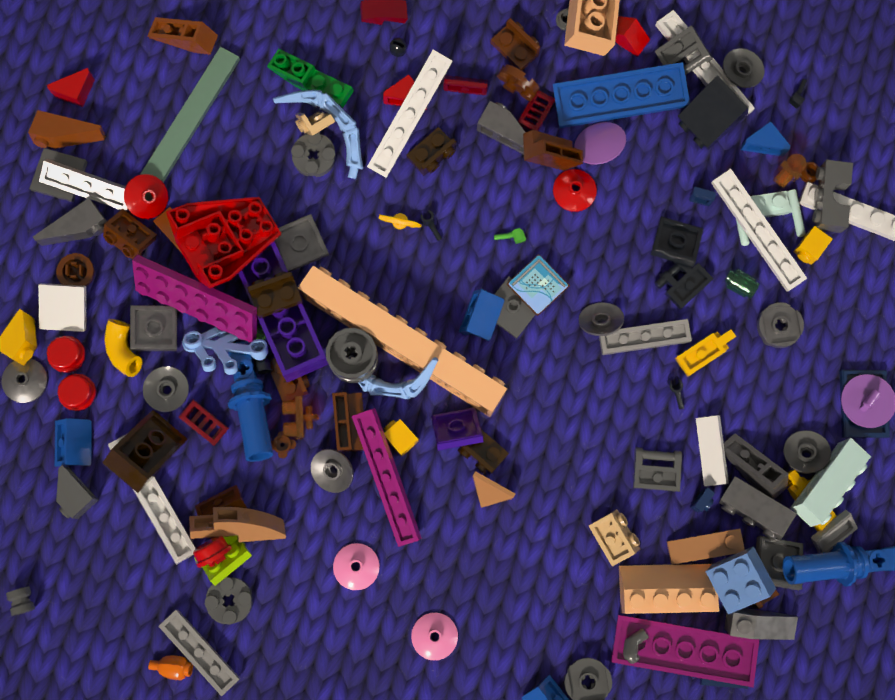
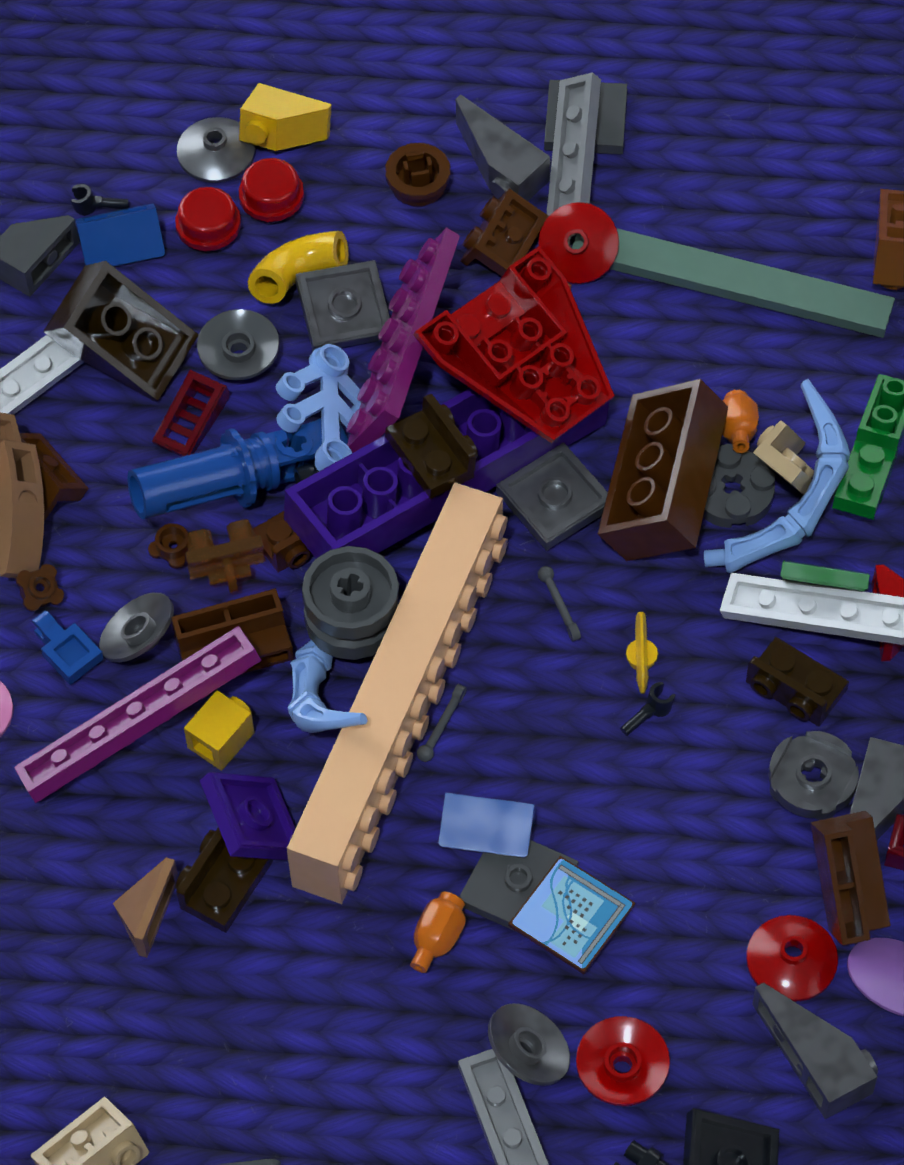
camera: 85 degrees right, 20 degrees down
(44, 453) = (88, 202): none -> black hand
(60, 131) = (661, 98): dark orange slope -> none
(62, 307) = (350, 167): white tile -> none
(73, 88) = (749, 102): red slope -> none
(277, 141) = (741, 420): none -> orange plant
(289, 523) = (31, 596): none -> reddish brown plate
(304, 183) = (663, 470): none -> reddish brown brick
(335, 508) = (66, 650): none -> blue plate
(342, 258) = (546, 575): none -> dark grey hinge
(383, 121) = (825, 575): none -> green tile
(432, 337) = (426, 752): none -> dark grey hinge
(487, 168) = (817, 798): none -> flat silver plate
(517, 234) = (667, 865): bright green hand -> none
(532, 350) = (437, 929): none -> orange plant
(621, 268) = (626, 1041): none -> red dish
(635, 186) = (819, 1053): none -> flat silver slope

